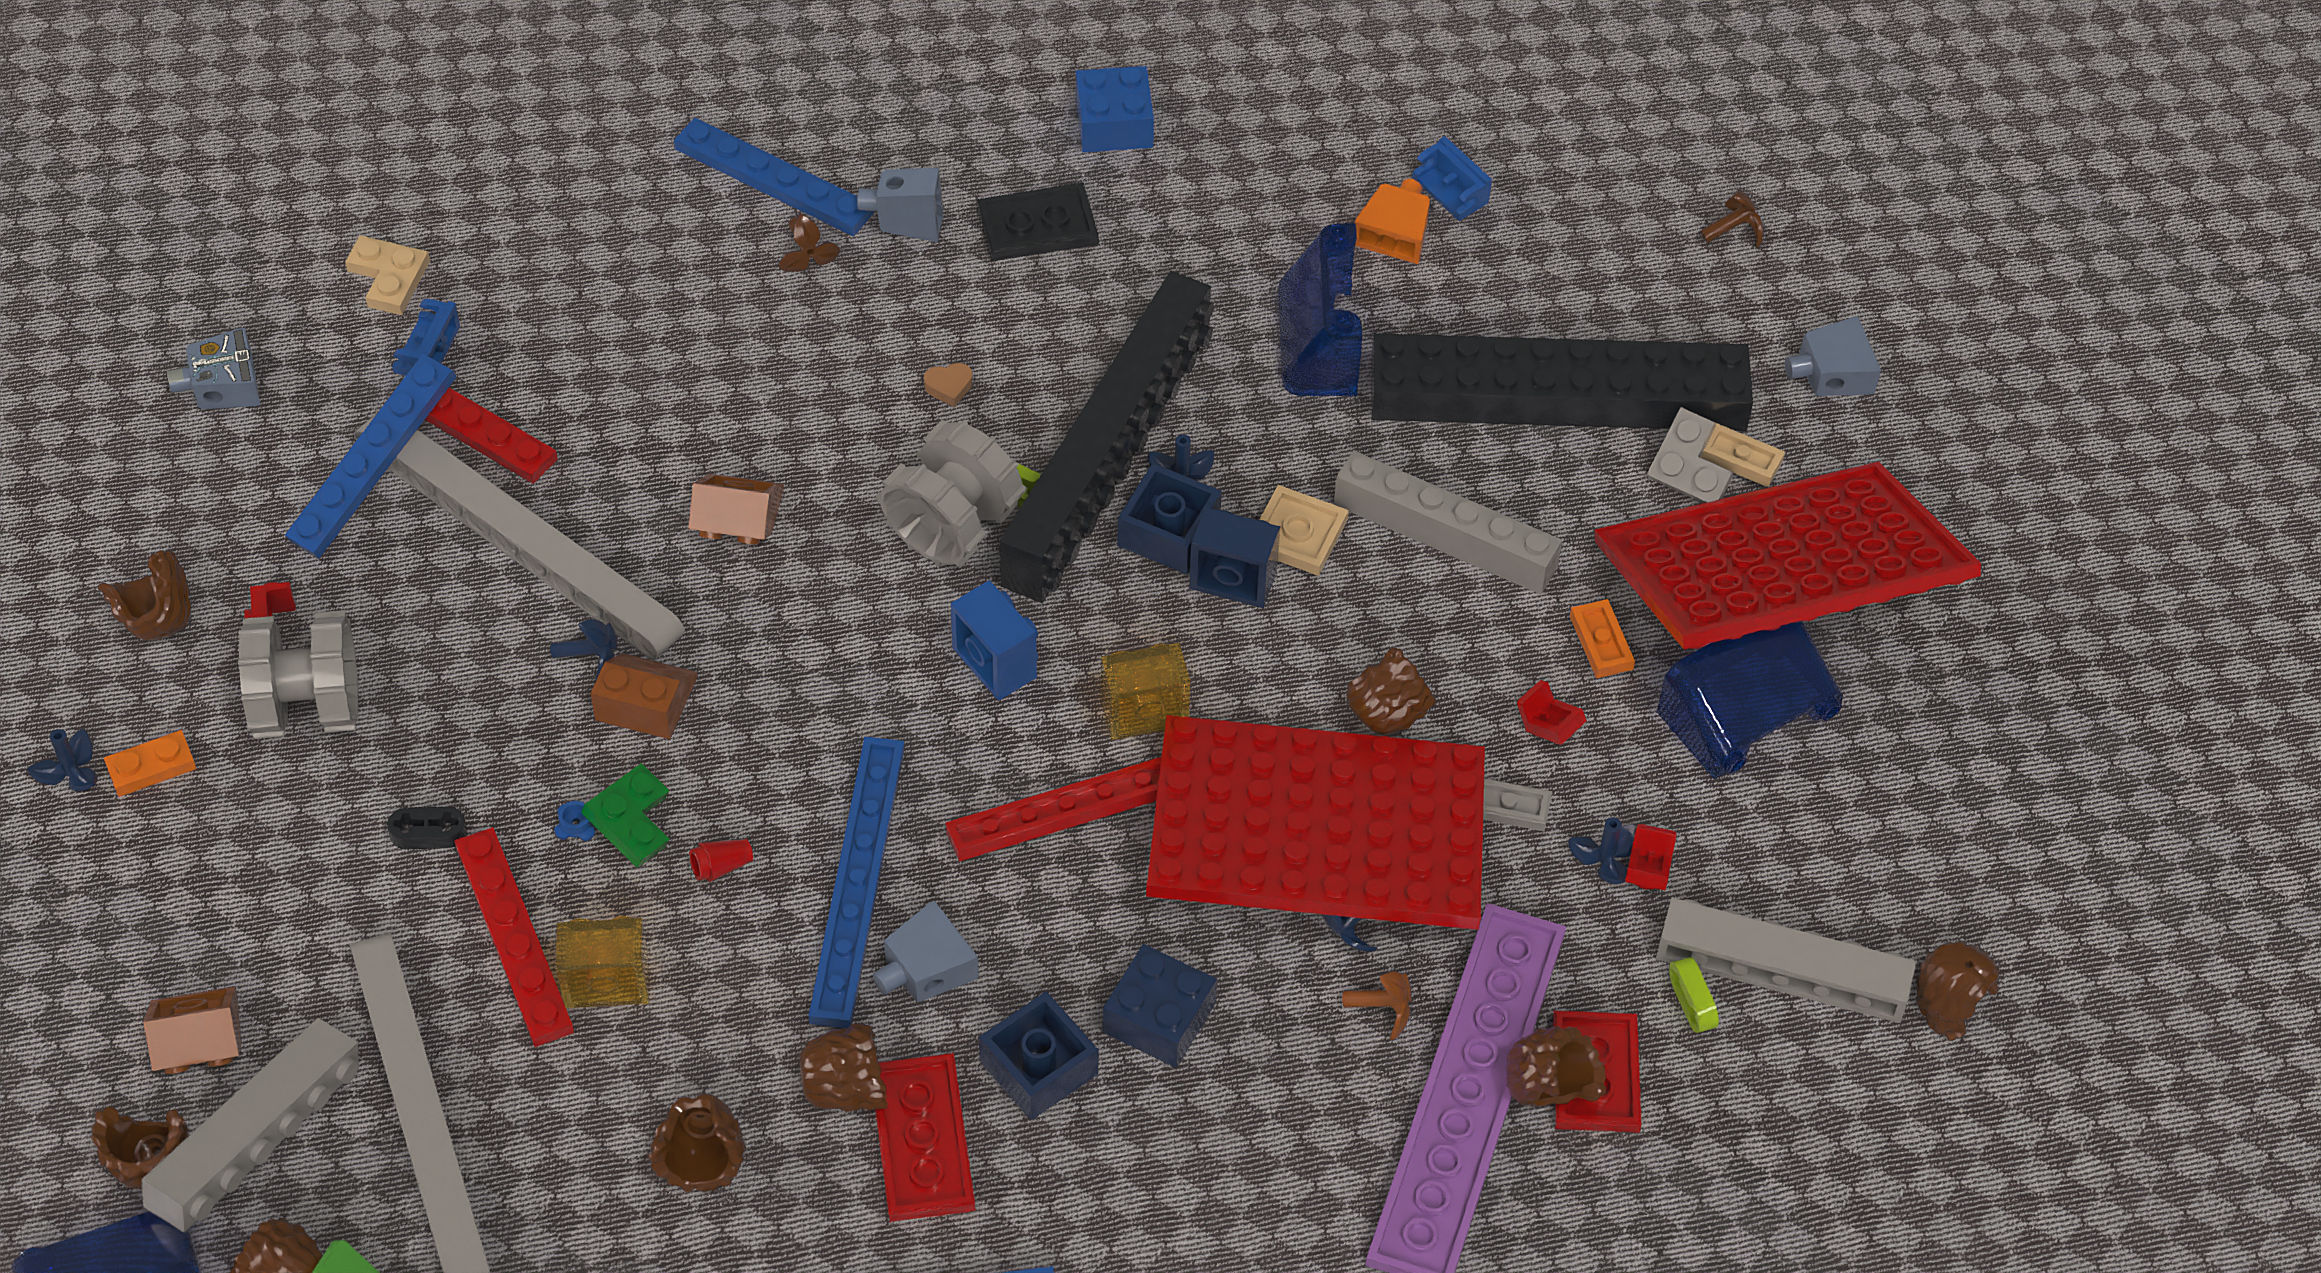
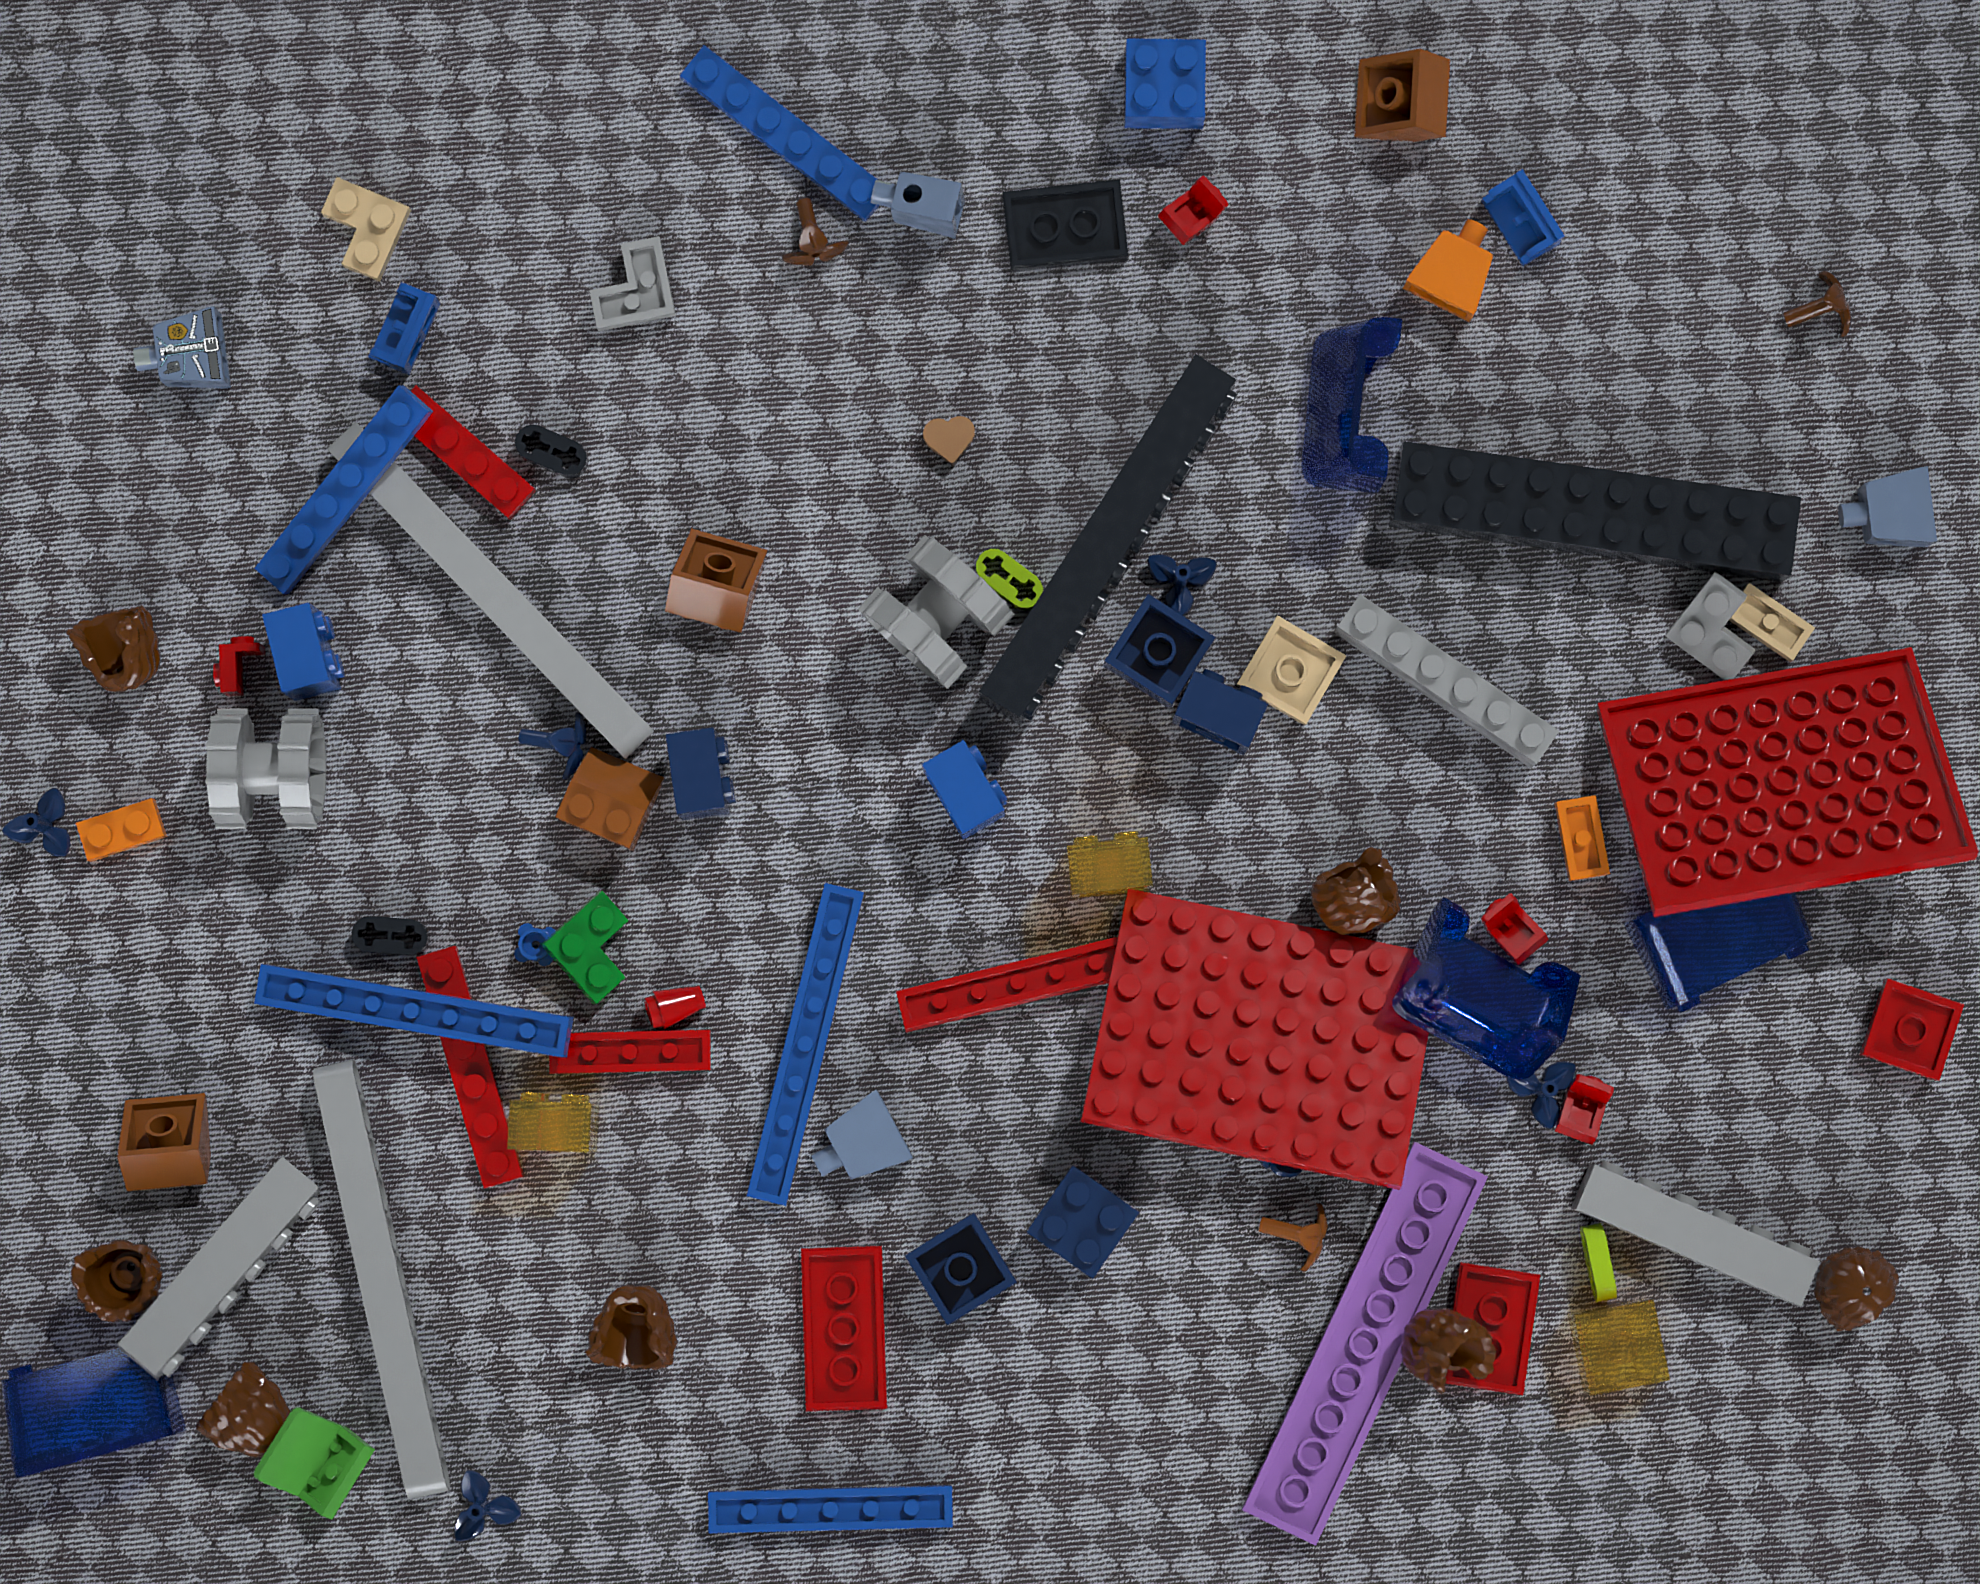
camera: 10 degrees right, 30 degrees up
(335, 578) = (303, 651): none -> blue brick
(453, 876) = (414, 1010): none -> blue plate
(571, 423) = (555, 443): none -> black beam
(650, 299) = (644, 296): none -> light grey plate
(683, 900) = (635, 1052): none -> red plate
(733, 649) = (699, 774): none -> dark blue brick
(843, 1070) = (772, 1265): reddish brown hair -> none
(1155, 197) = (1194, 210): none -> red bracket
(1329, 102) = (1402, 96): none -> dark orange slope
(1526, 772) = (1483, 1000): none -> clear blue windscreen
(1730, 1065) = (1618, 1346): none -> clear yellow brick
(1957, 766) = (1911, 1029): none -> red plate

